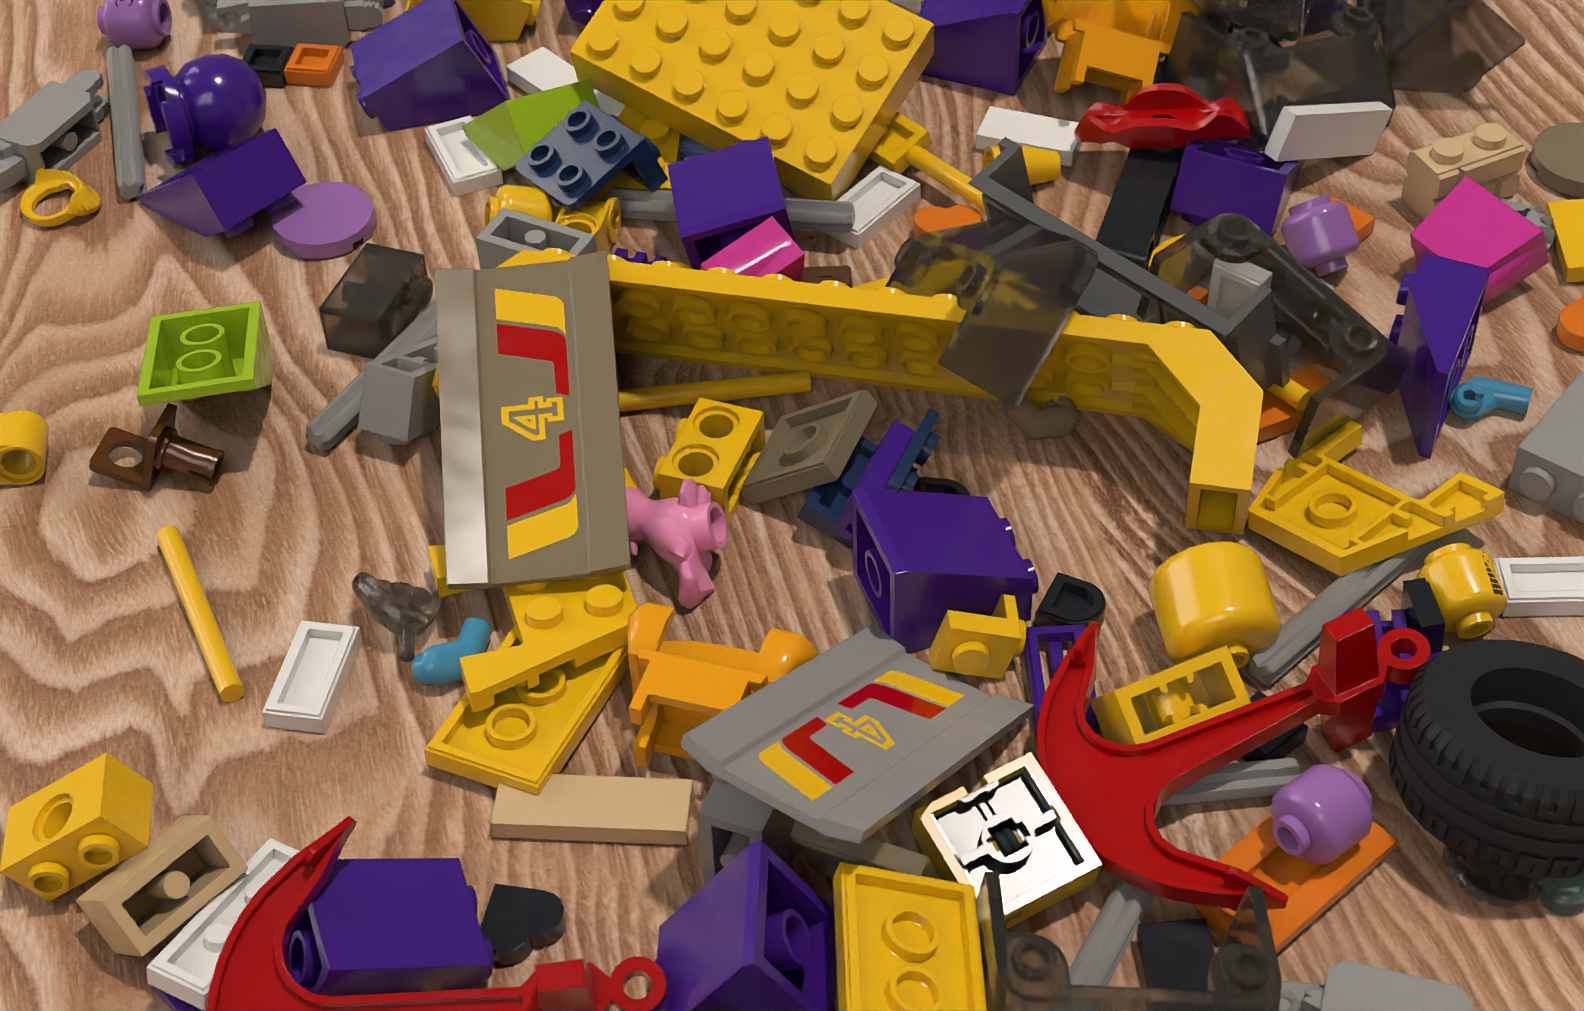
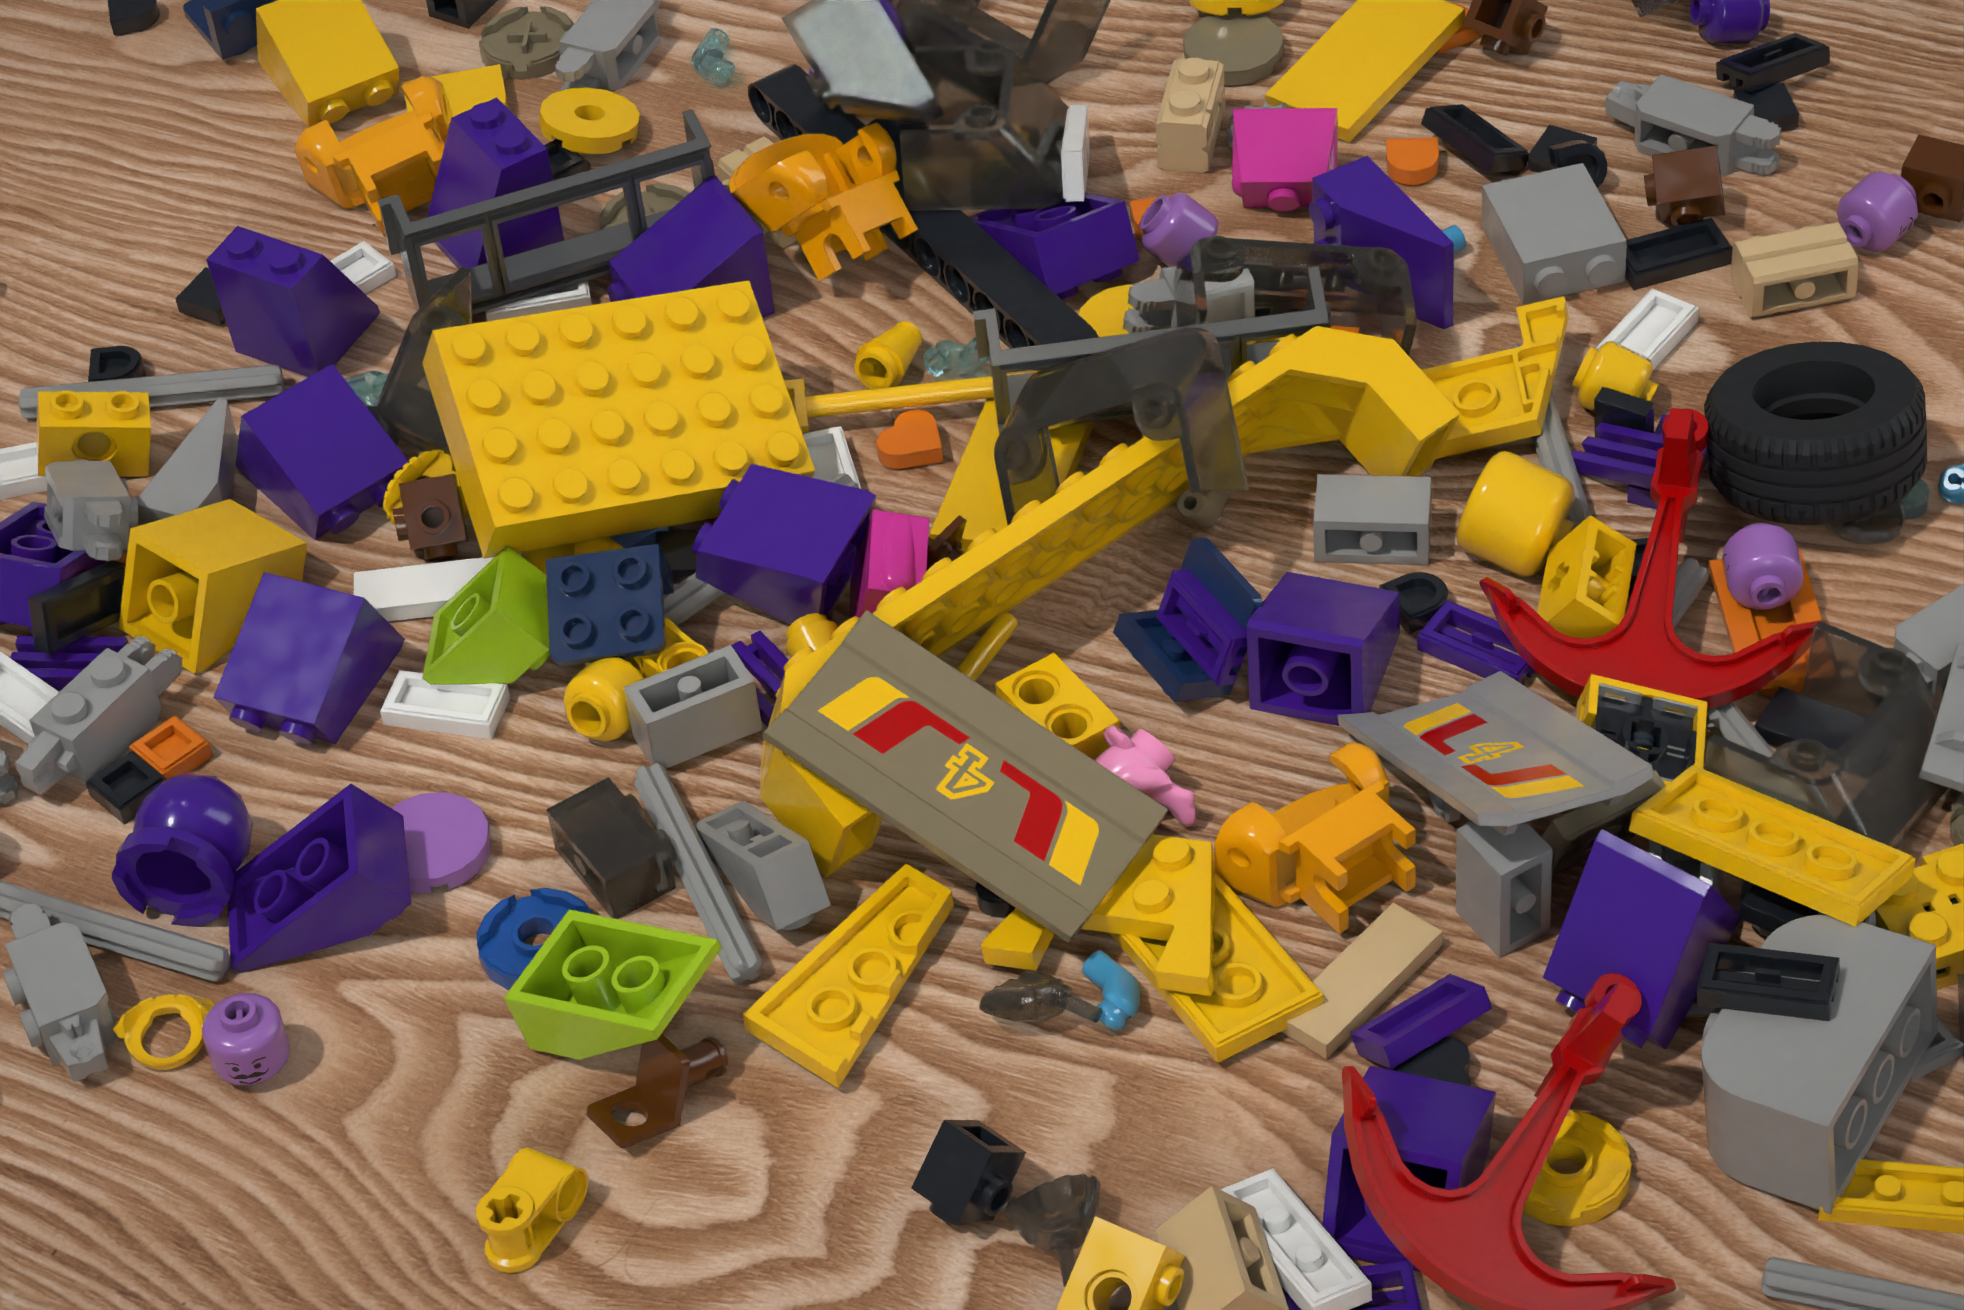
camera: 50 degrees left, 0 degrees up
(53, 231) = (245, 1039): none -> medium lavender head
(172, 665) = (968, 1172): none -> black brick
(178, 748) = (1057, 1216): none -> clear smoke piece
(200, 614) = (846, 1138): yellow bar -> none
(298, 313) = (514, 921): none -> blue tile
(312, 677) = (1043, 1097): white tile -> none
(335, 496) = (847, 983): none -> yellow wing
(565, 873) = (1421, 1021): none -> dark purple tile
(809, 447) = (1117, 644): dark tan tile -> none
(979, 642) = (1418, 658): yellow bracket -> none
(1029, 131) = (843, 330): white tile -> none
(1055, 198) = (955, 358): none -> clear light blue arm
(1122, 522) = (1372, 519): none -> light grey brick
(1162, 118) = (989, 214): red piece -> none

